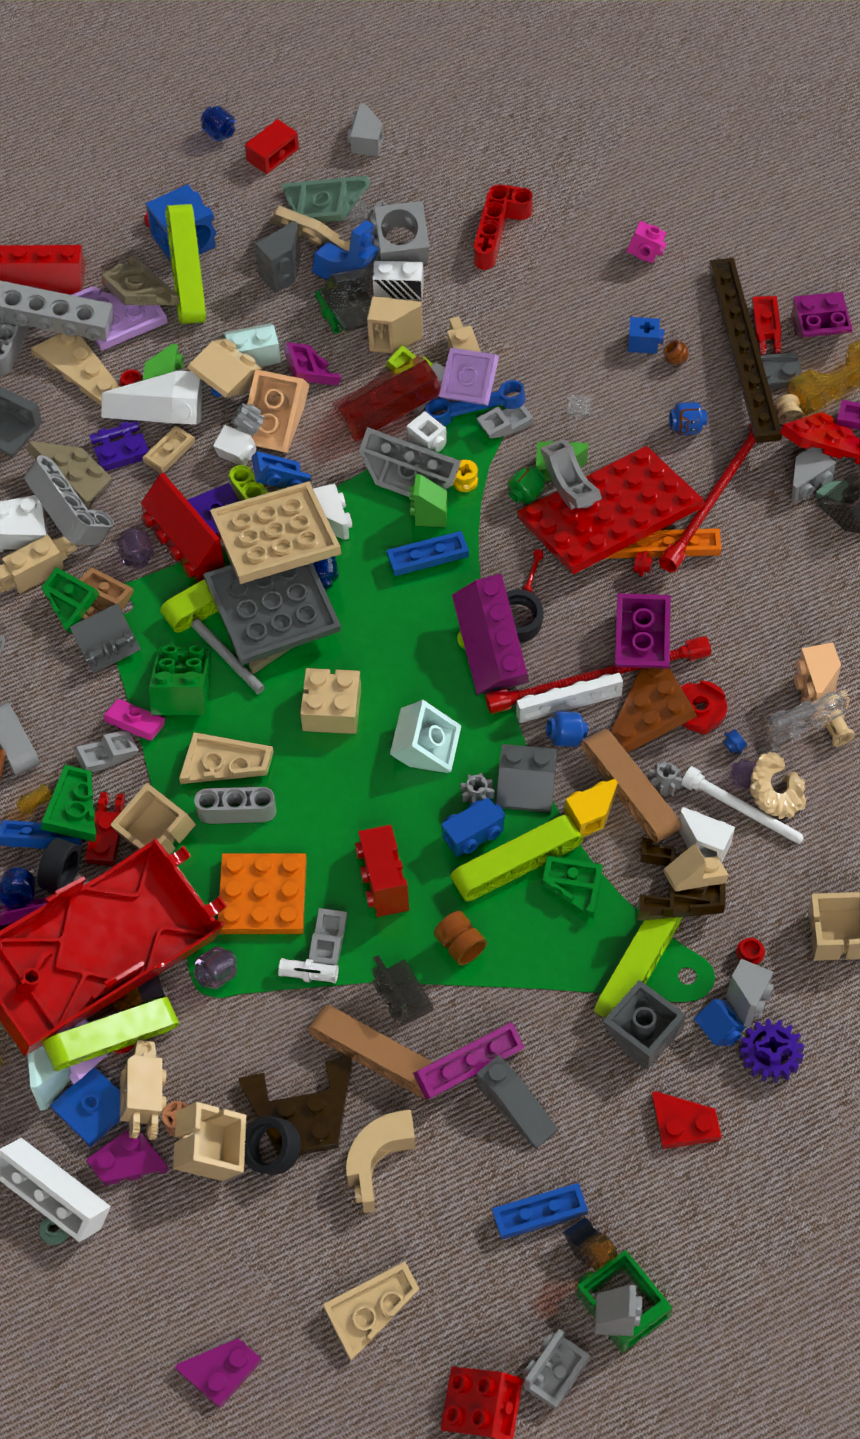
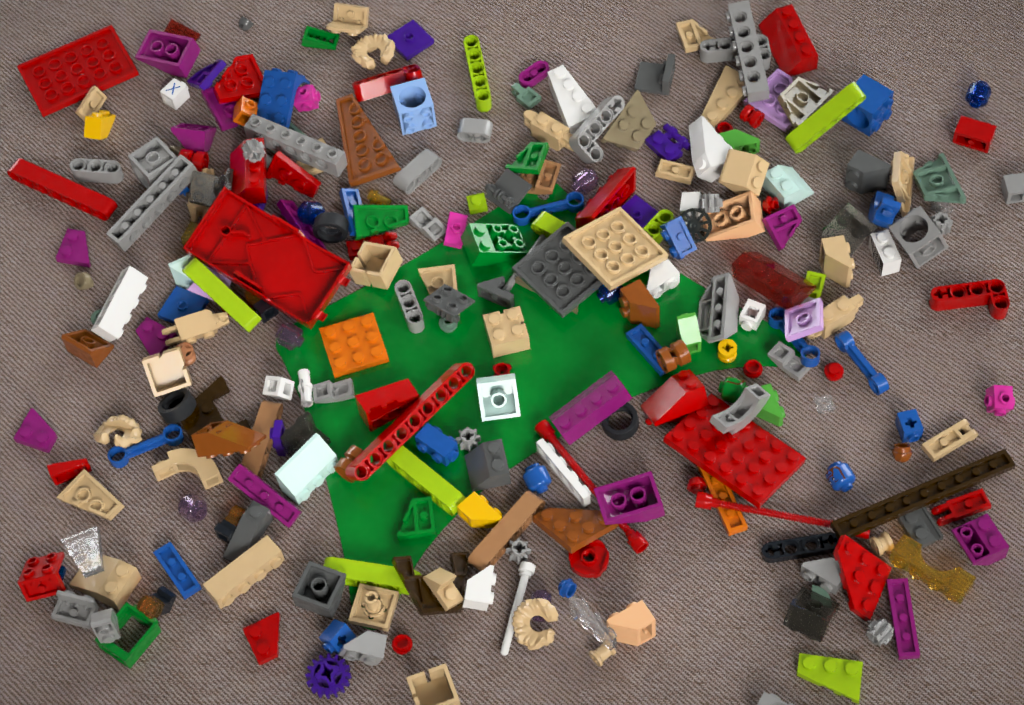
camera: 75 degrees right, 0 degrees up
(100, 684) = (477, 203): none -> lime plate
(101, 1257) = (87, 346): none -> dark orange slope
(127, 345) = (752, 116): none -> red wheel
(154, 603) = (550, 208): none -> blue piece
(258, 749) = (448, 303): none -> dark grey hinge
(261, 700) = (492, 291): none -> dark grey slope
(263, 1232) = (131, 431): none -> tan piece
(265, 446) = (695, 224): none -> pearl dark grey wheel
(273, 366) = (770, 205): none -> red plate
(285, 774) = (448, 328): none -> sand green plate
(299, 1001) = (278, 387): none -> white brick
(311, 1340) = (67, 470): none -> red slope
(312, 1211) = (146, 445): none -> blue piece
(365, 538) = (639, 305): none -> dark orange slope
(370, 1078) = (225, 439): none -> dark orange slope
(385, 720) = (501, 367): none -> red plate
(385, 1016) = (275, 434): none -> dark purple plate
(430, 847) = (403, 424): none -> red beam
(447, 1165) = (192, 508): none -> clear purple head
(451, 995) = (306, 469): none -> light aqua slope
(459, 524) = (674, 355): none -> dark orange wheel
(468, 1329) = (86, 551): none -> clear wing
(493, 1119) = (227, 527): none -> leg
(499, 460) = (752, 369): none -> red plate
(516, 543) = (675, 398): none -> red slope
(517, 1316) = (110, 586): none -> tan slope
(538, 383) = (833, 371): none -> red plate
(540, 351) = (876, 381): none -> blue piece
(577, 1121) = (244, 572): none -> tan brick
(676, 307) = (949, 440): none -> tan plate
(691, 961) = (374, 607): none -> tan plate
(762, 489) = (799, 544): none -> black beam

